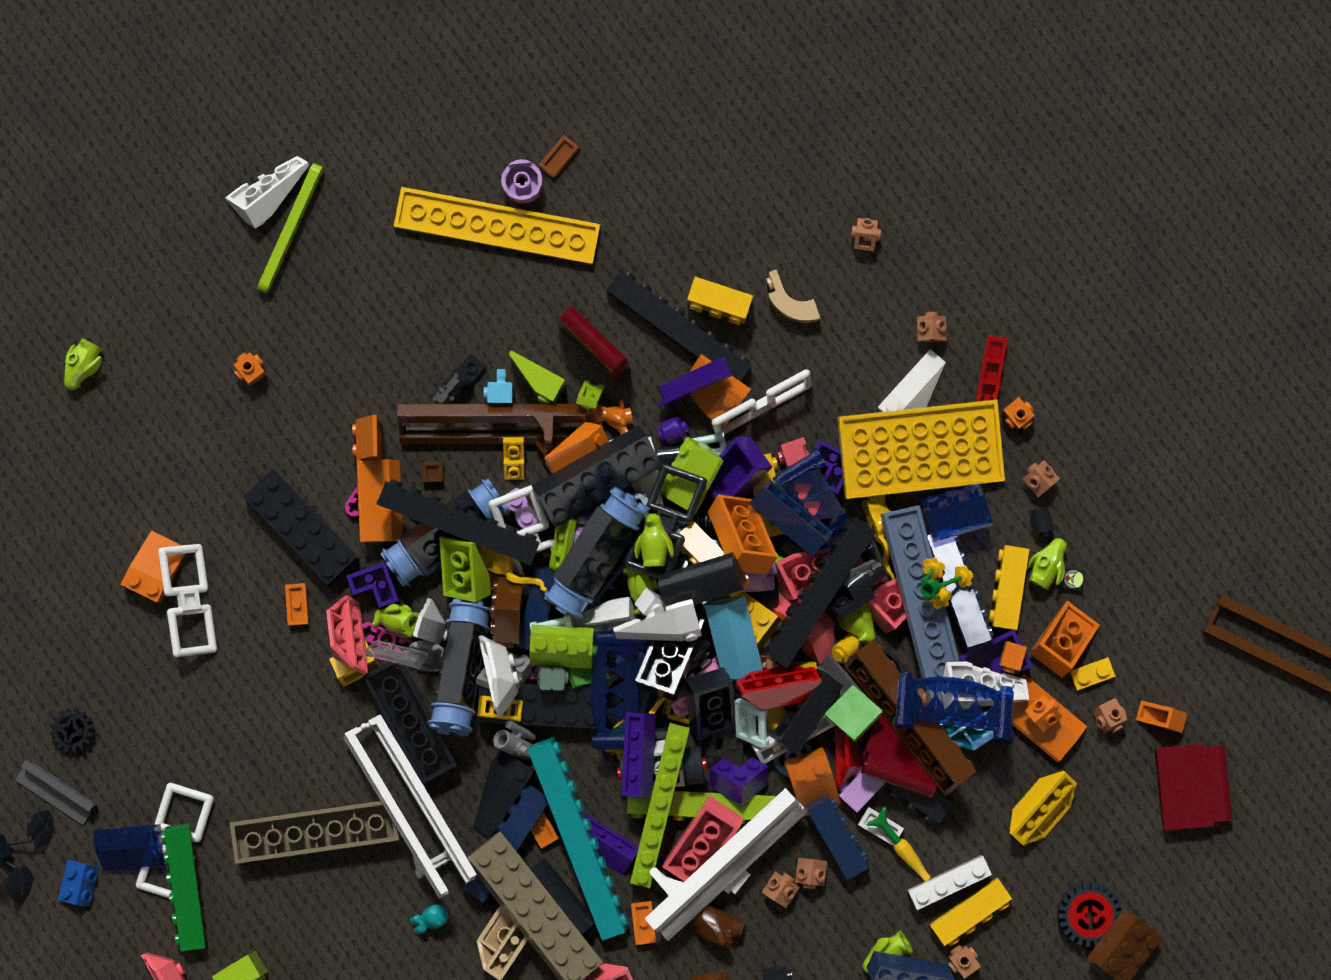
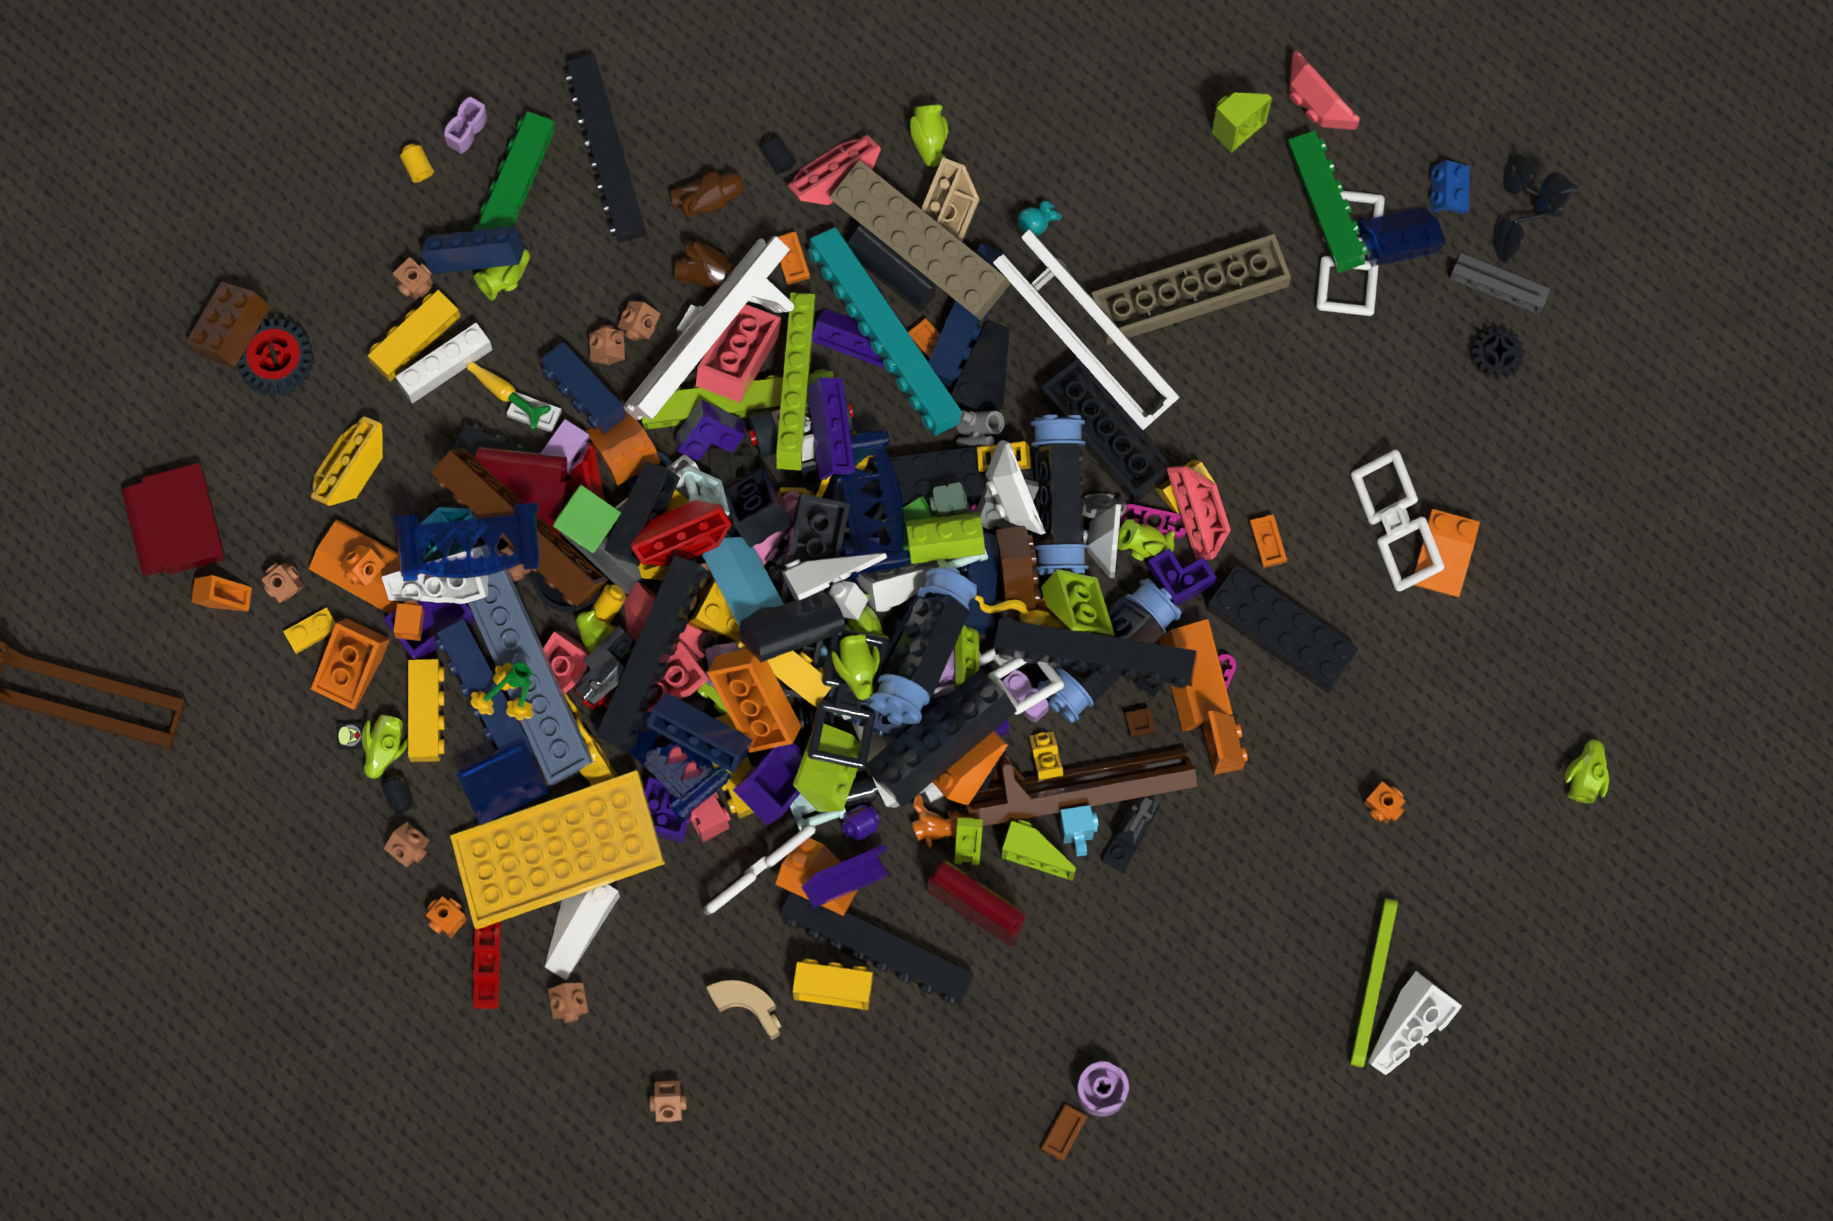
camera: 165 degrees right, 10 degrees down
(397, 654) = (1137, 497): clear tile -> none
(497, 225) = (1123, 1032): yellow plate -> none

